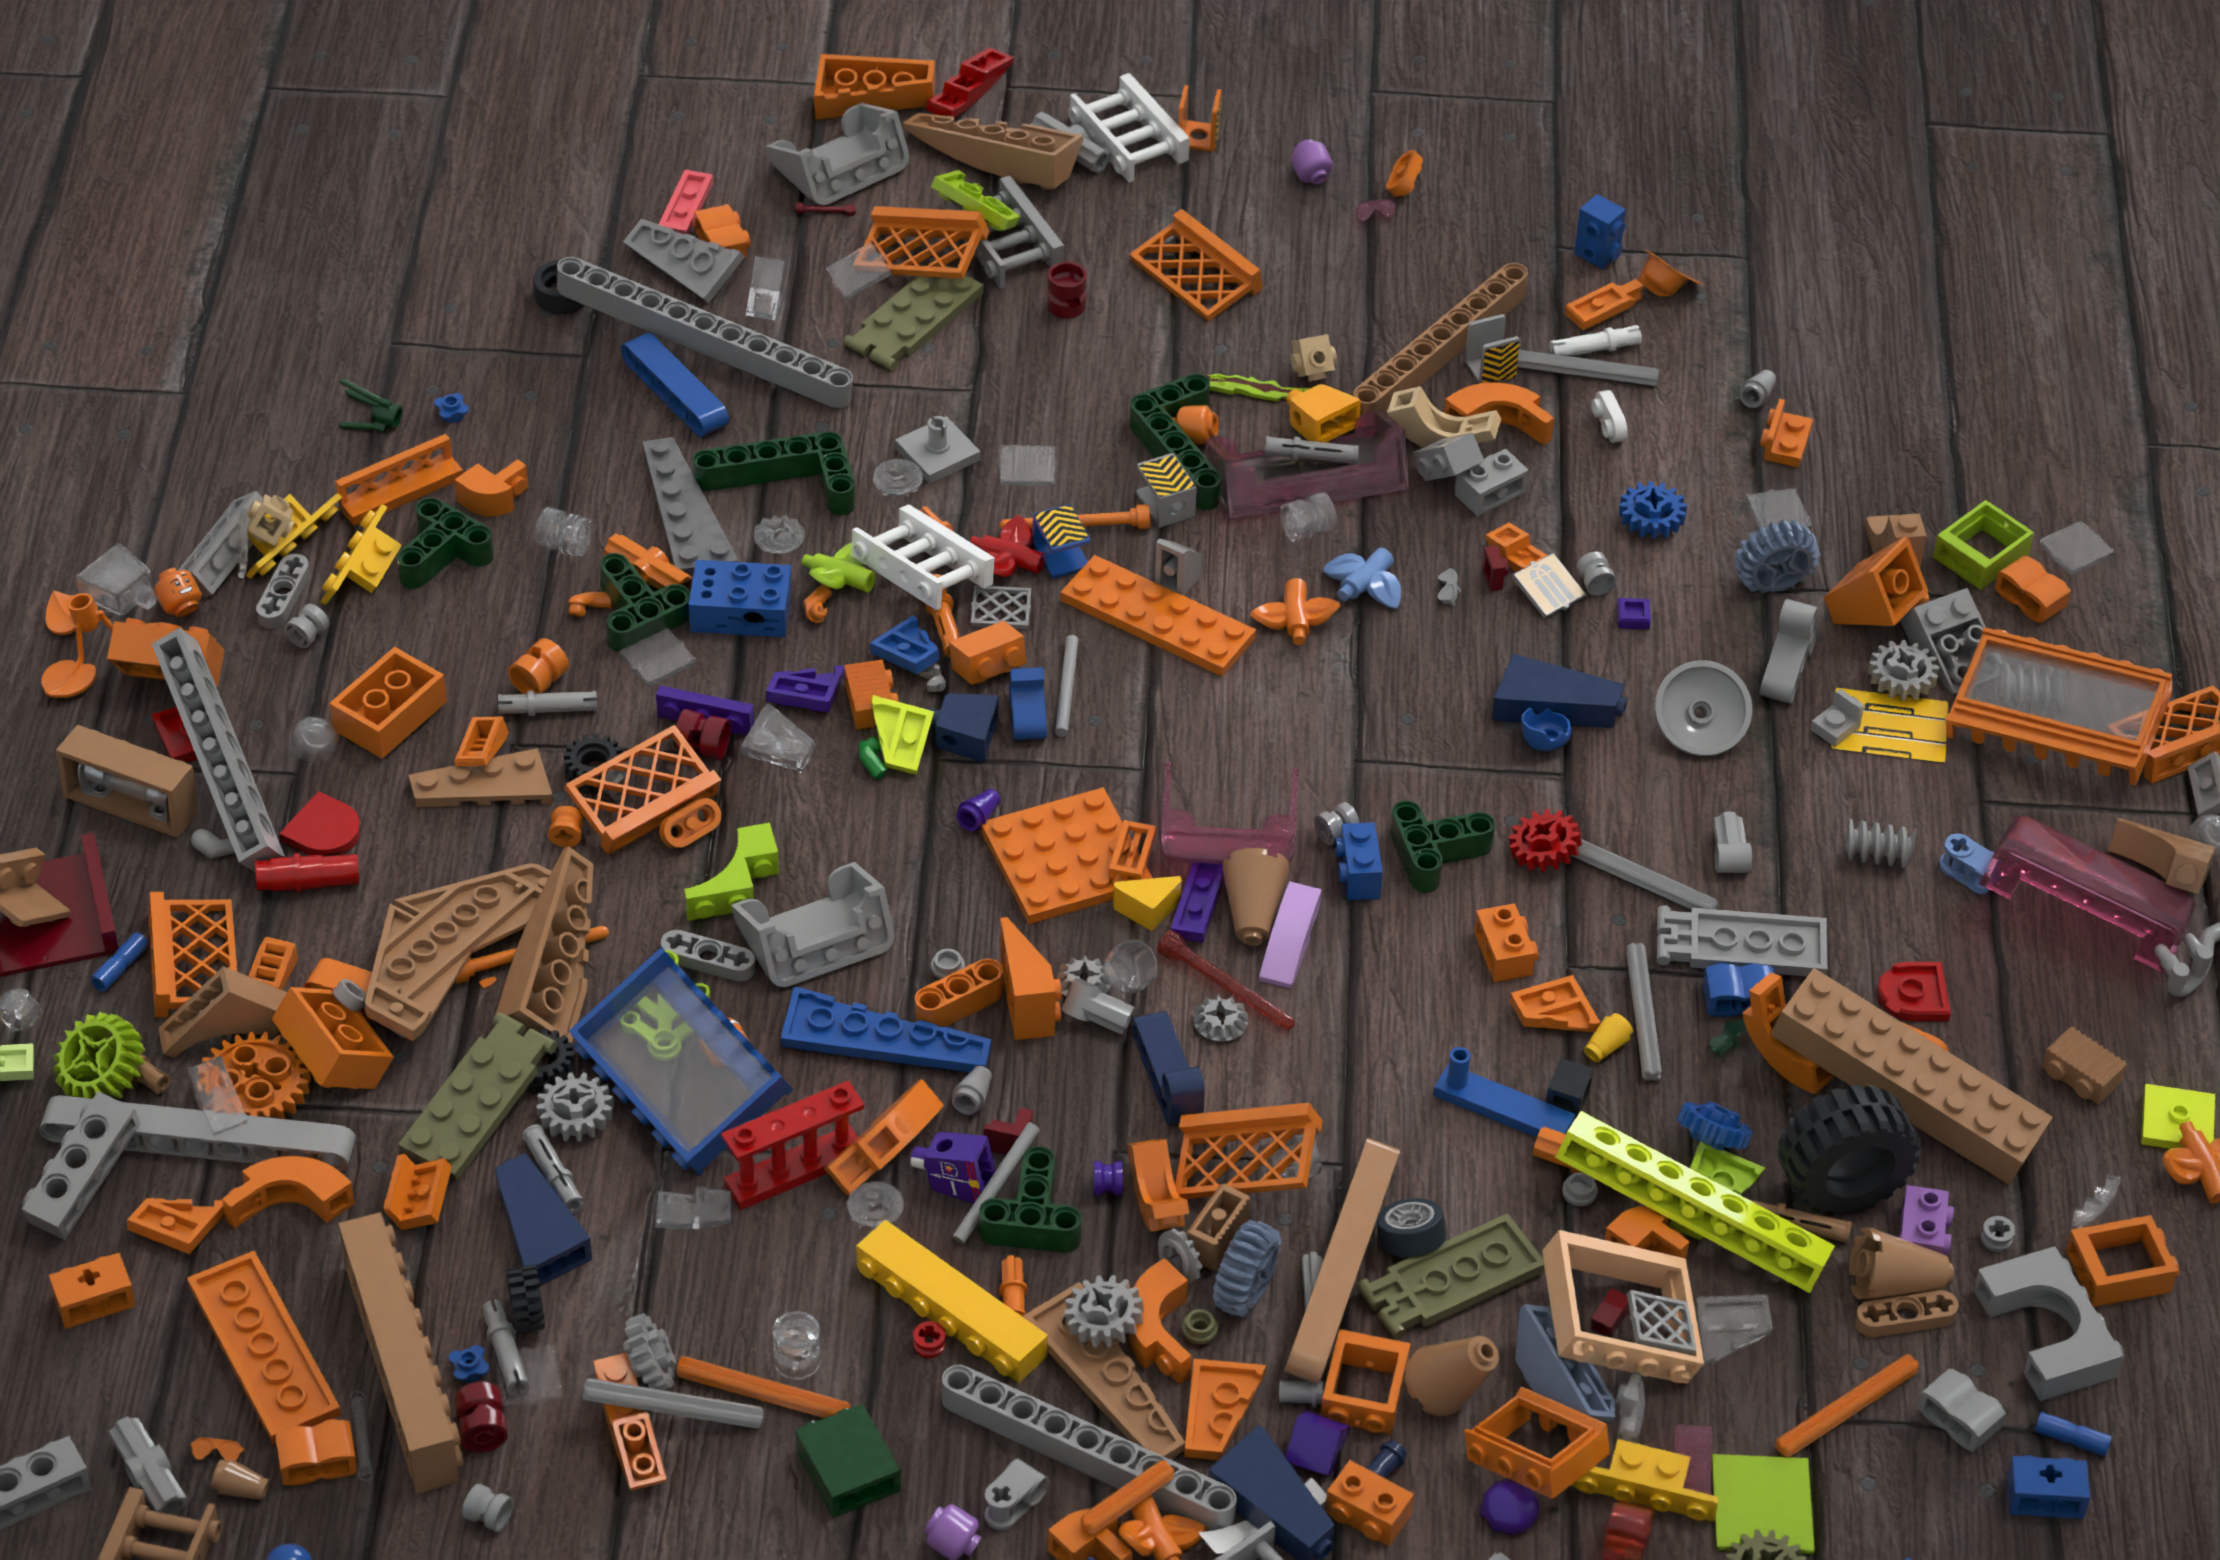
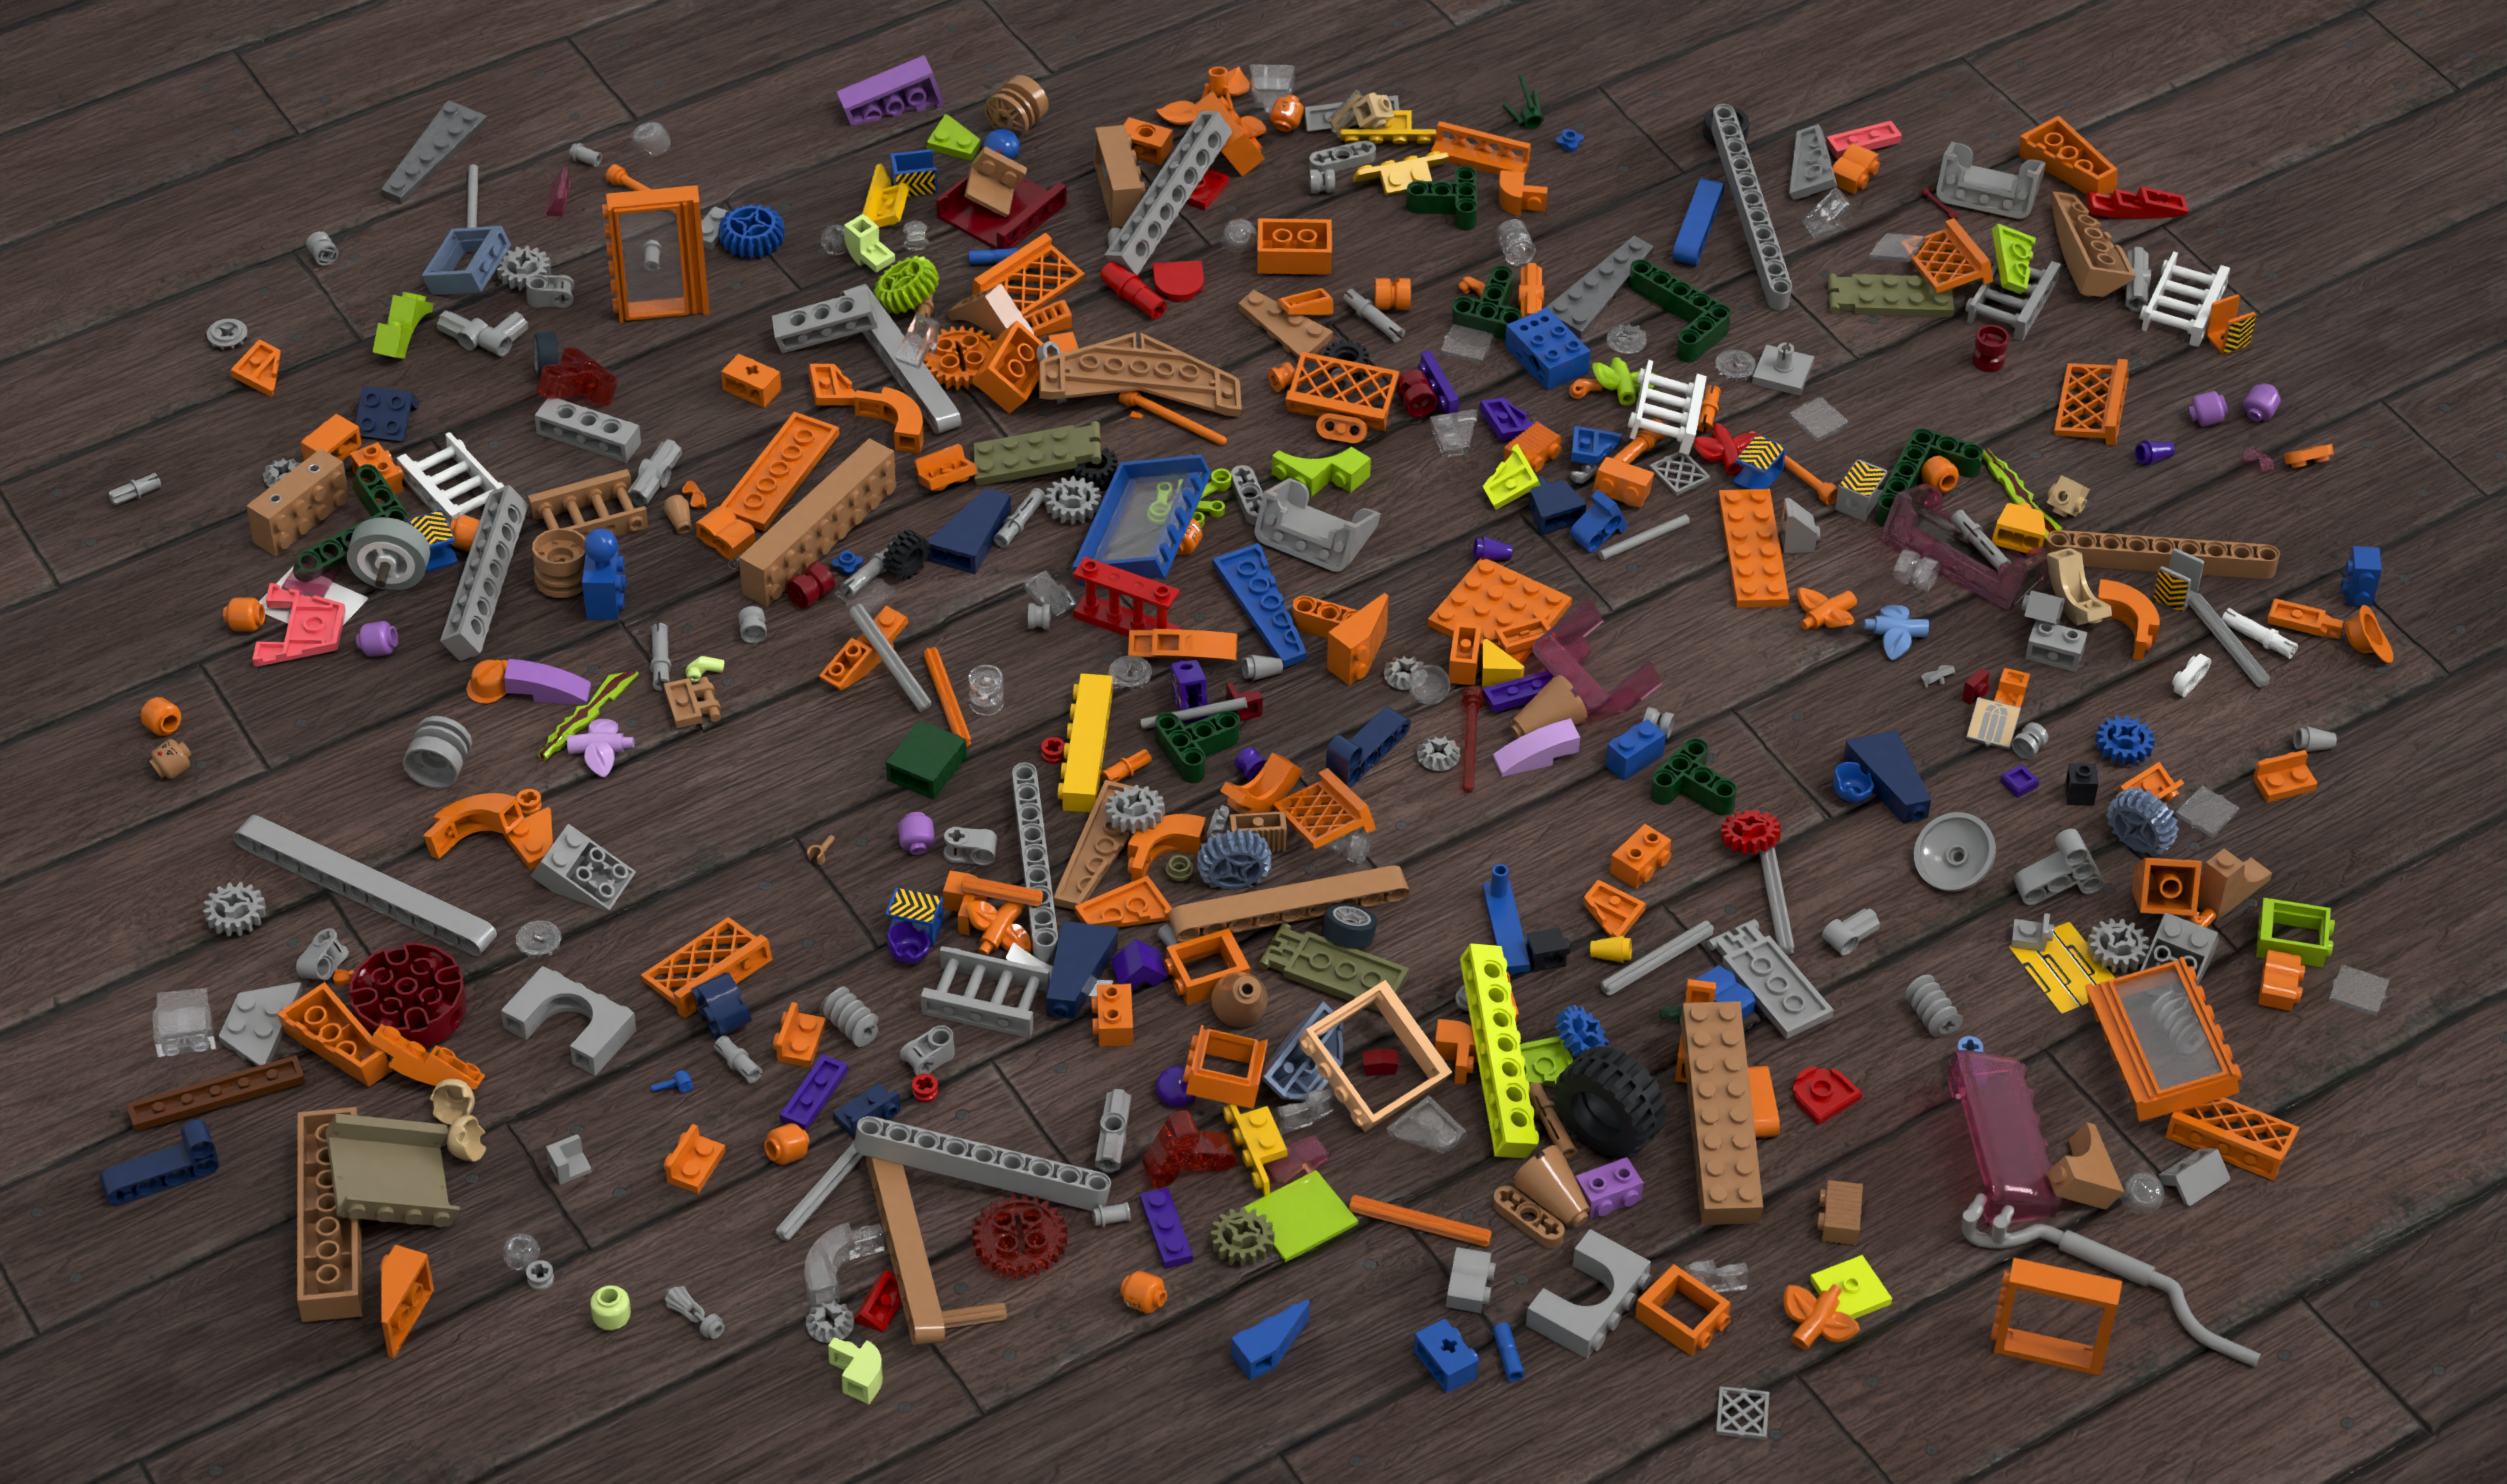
camera: 55 degrees right, 0 degrees up
(93, 715) = (1149, 141): none -> orange brick
(547, 970) = (1174, 424): medium nougat wedge -> none
(649, 1352) = (914, 626): light grey gear -> none
(723, 1236) = (1039, 616): none -> light grey wheel
(868, 757) = (1479, 479): green arm -> none
(946, 962) = (1351, 600): light grey plate -> none
(1089, 1003) = (1381, 683): light grey piece -> none
(1114, 911) = (1465, 653): none -> orange brick
(1286, 199) = (2208, 409): none -> medium lavender head
(1302, 269) = (2153, 451): none -> dark purple cone
(1390, 1456) = (1155, 1008): dark blue pin -> none
(1662, 1302) = (1362, 1088): light grey window -> none
(1684, 571) = (2081, 784): none -> black brick
(1727, 528) = (2155, 780): none -> orange bracket
(1994, 1242) = (1647, 1227): light grey bush -> none

